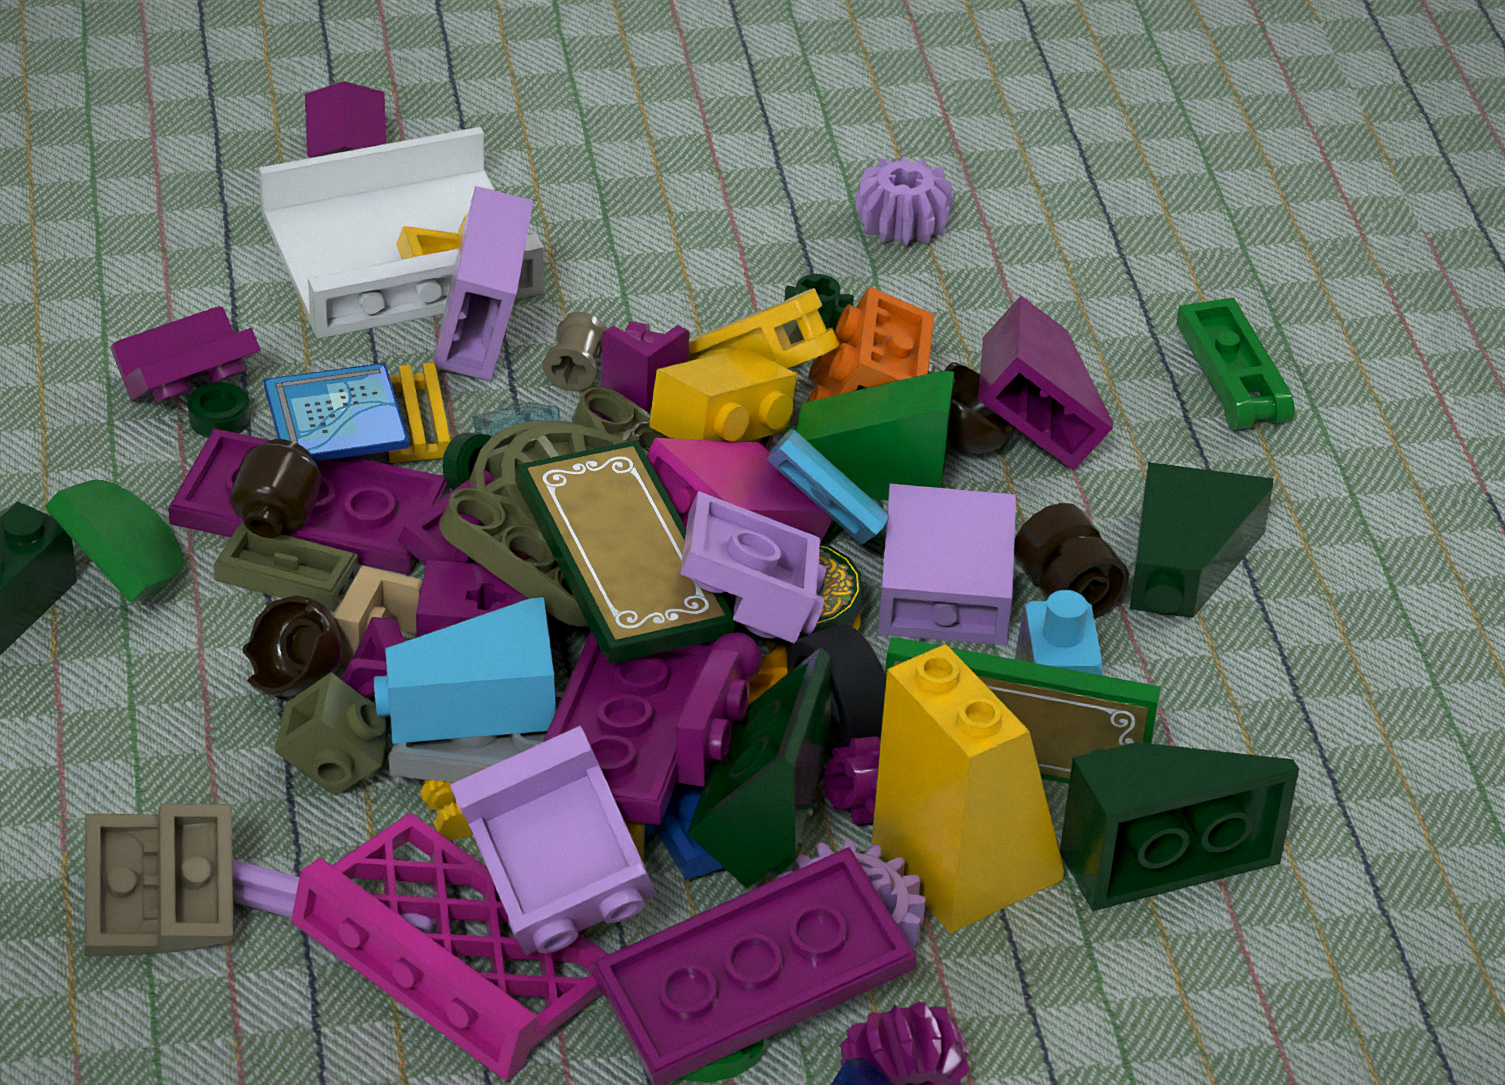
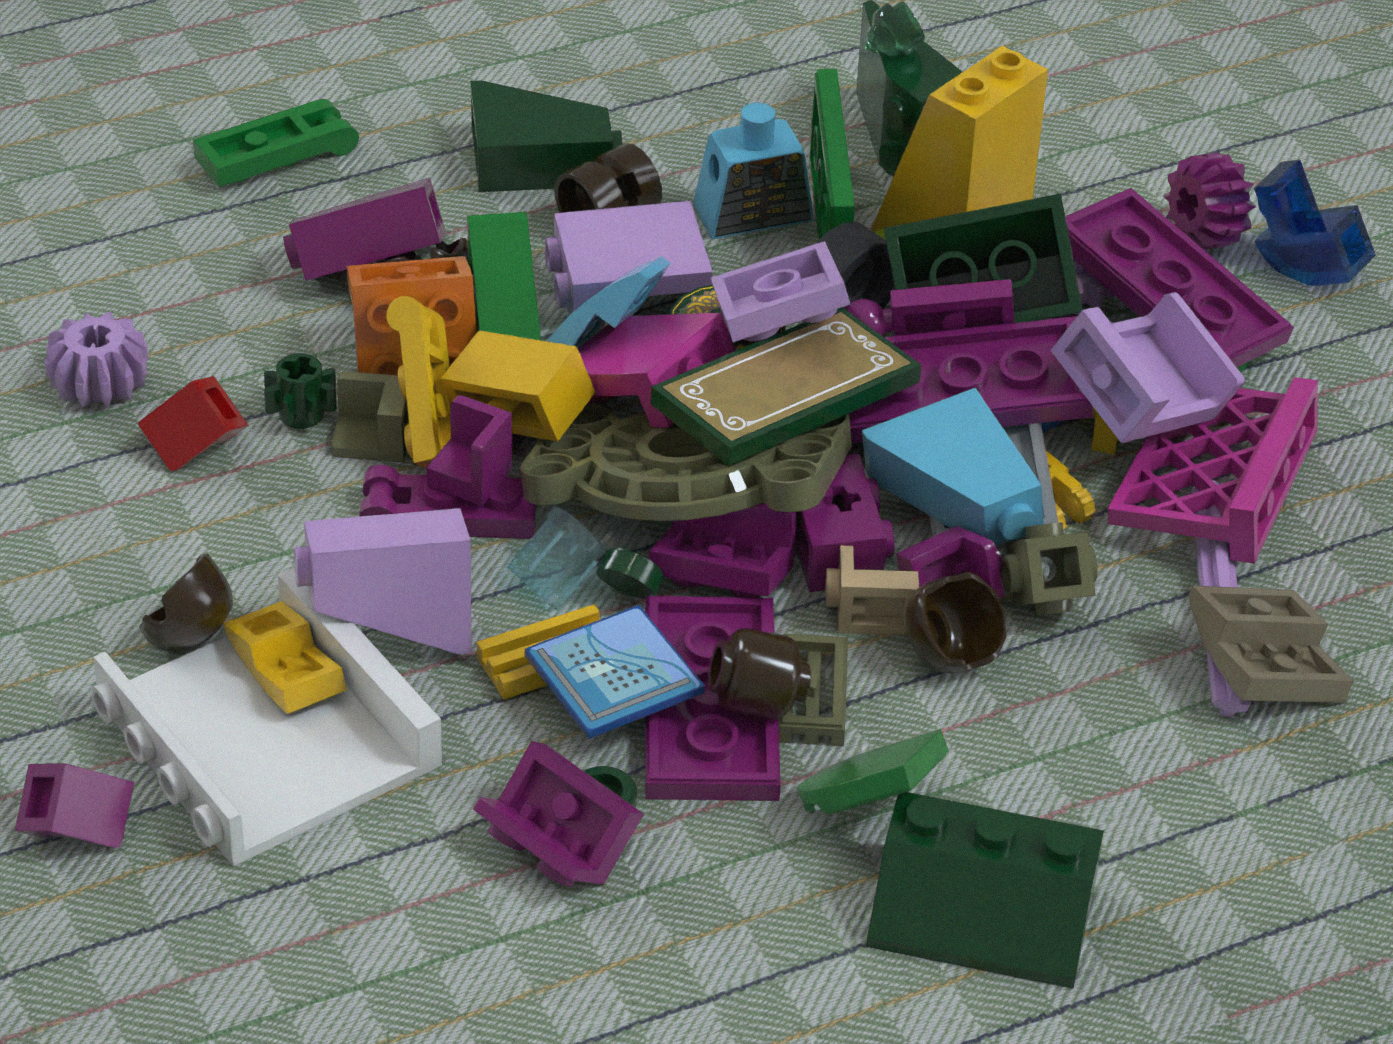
camera: 105 degrees left, 0 degrees up
(554, 203) = (191, 608): none -> dark brown hair
(795, 245) = (192, 422): none -> red panel
(1190, 742) = (894, 31): none -> clear green plate

